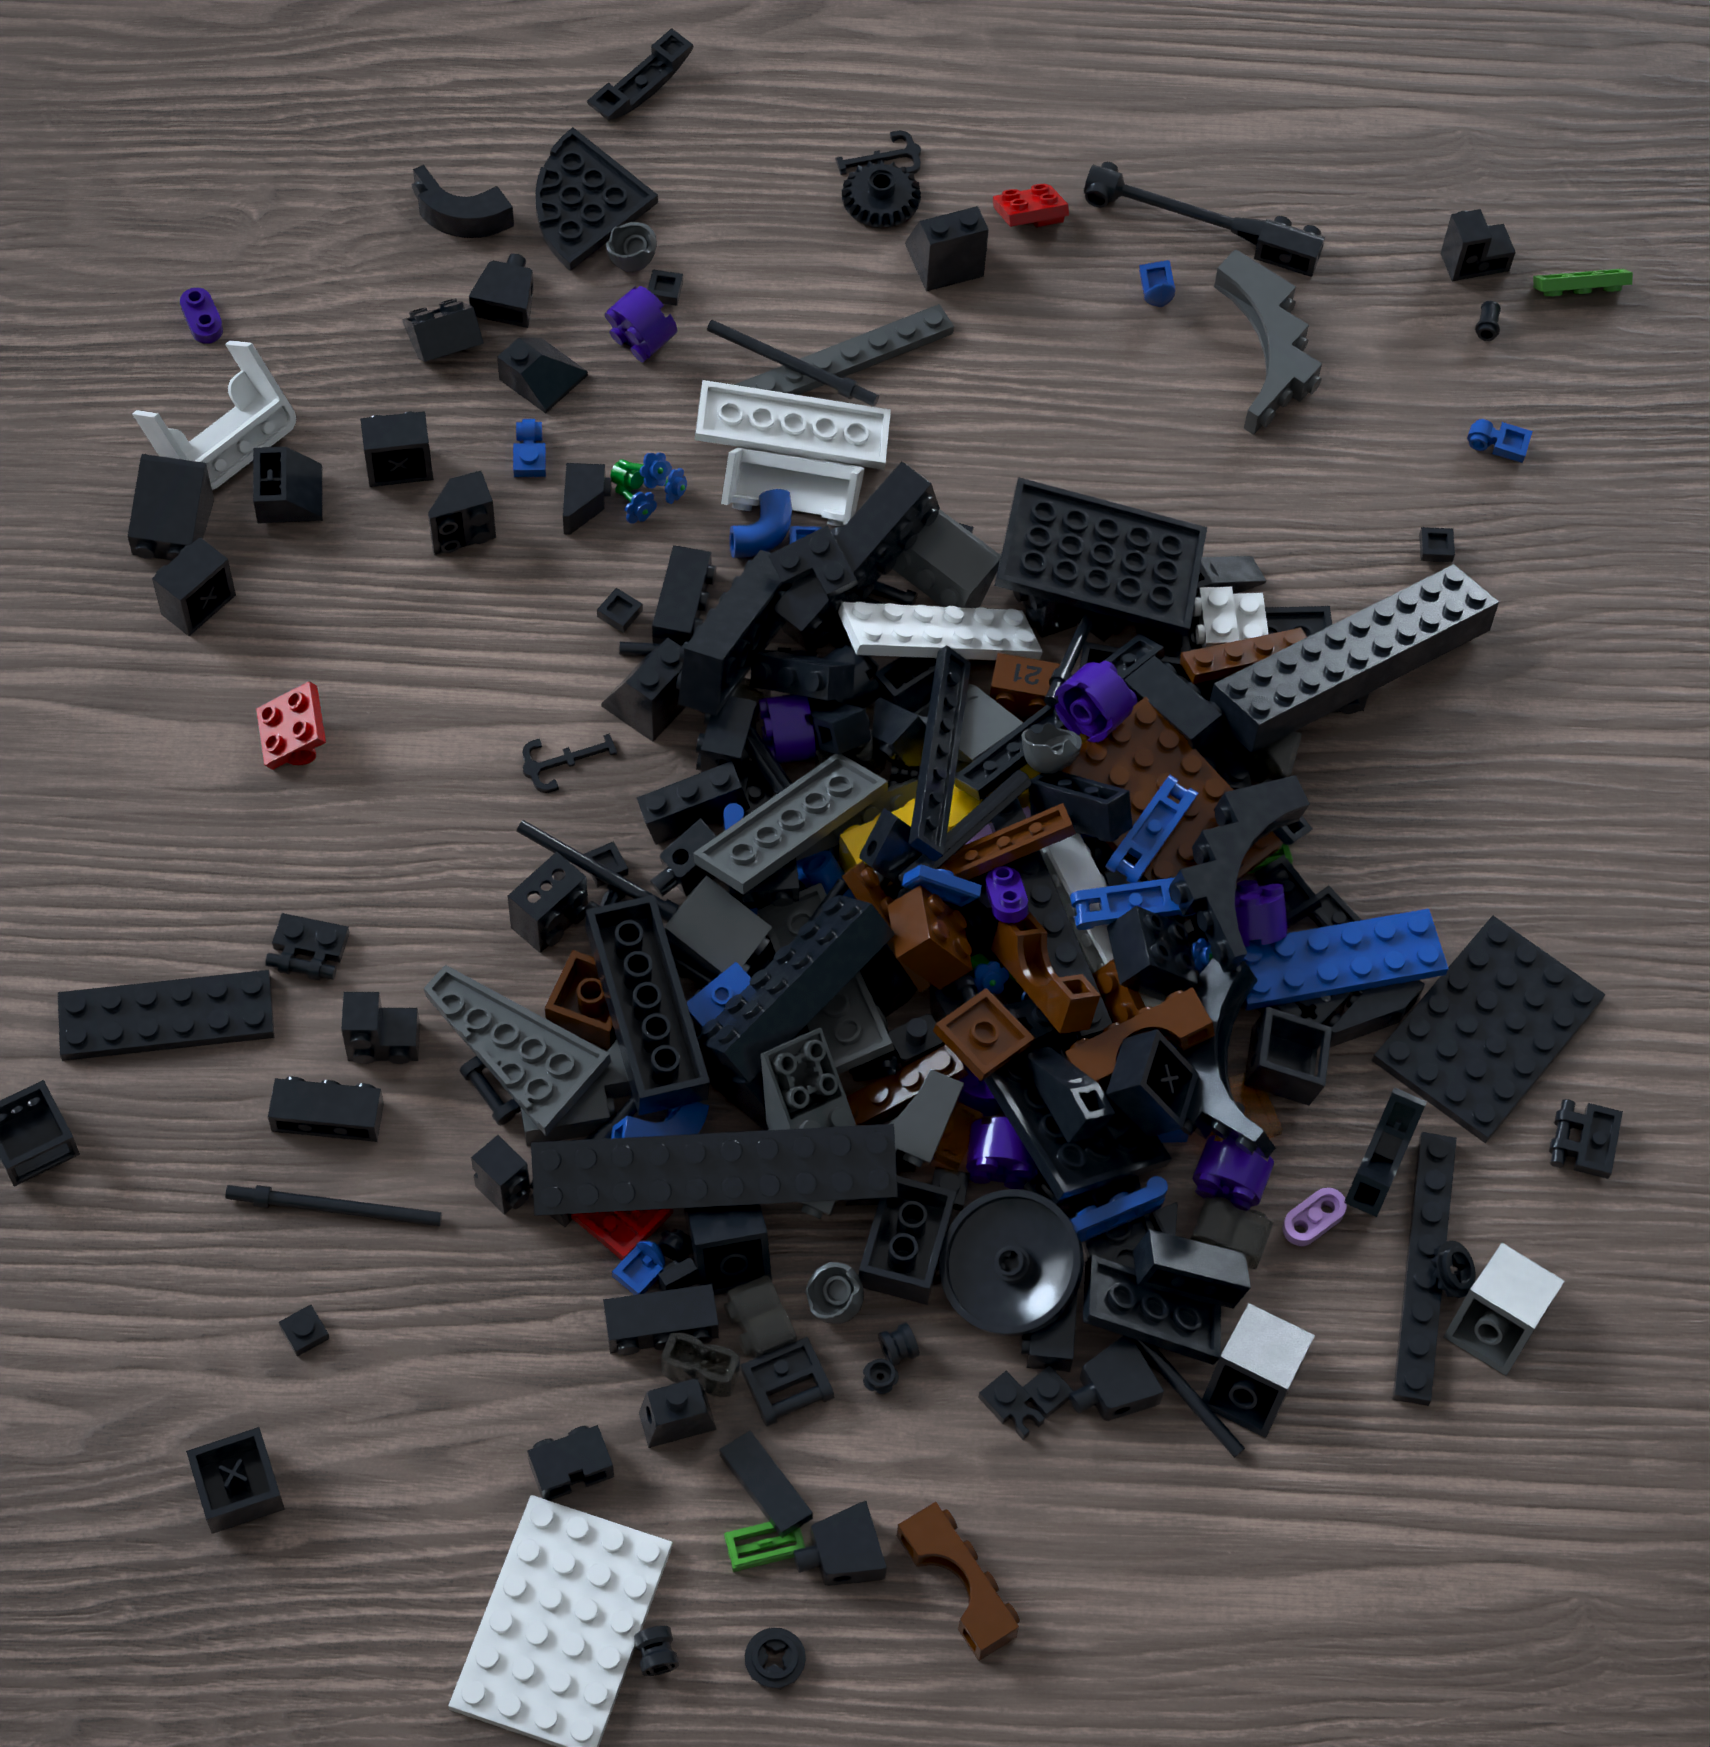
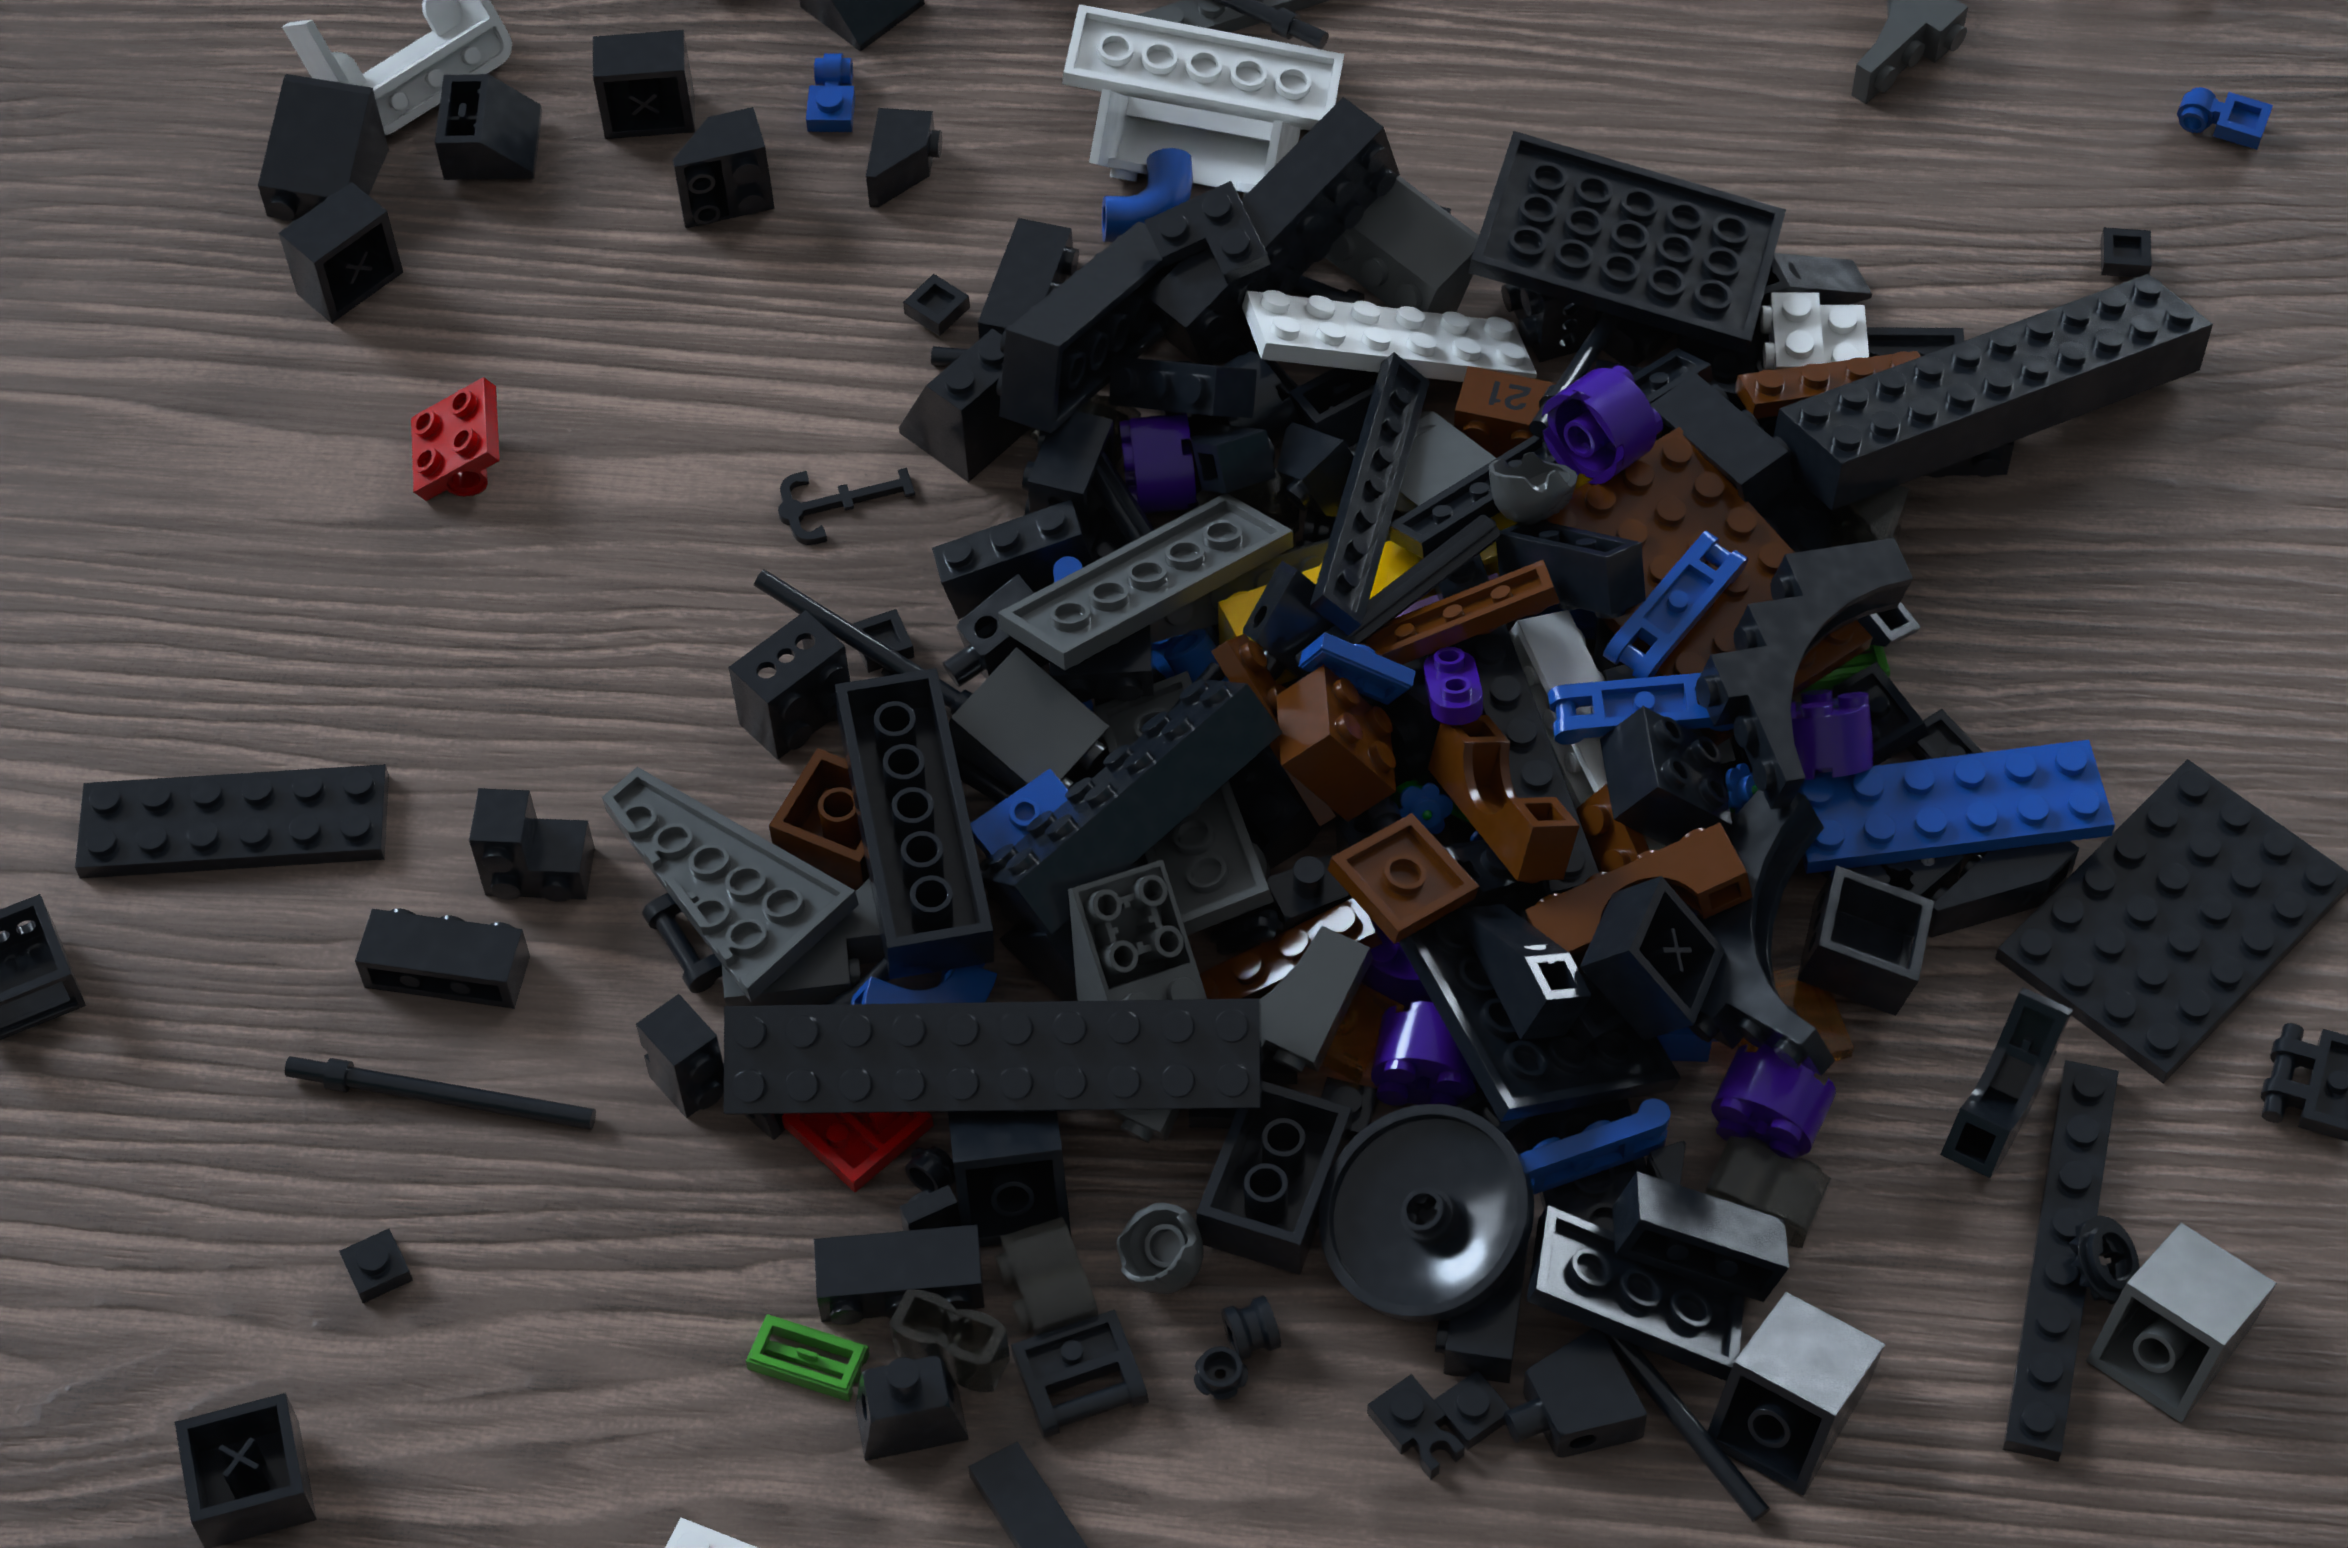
camera: 10 degrees right, 5 degrees down
(307, 938) = (446, 725): black plate -> none
(570, 1461) = (743, 1473): black brick -> none
(601, 1392) = (801, 1376): none -> bright green tile
(640, 1267) = (875, 1198): blue plate -> none
(653, 473) = (995, 120): blue plant -> none
(1312, 1218) = (1892, 1177): lavender plate -> none

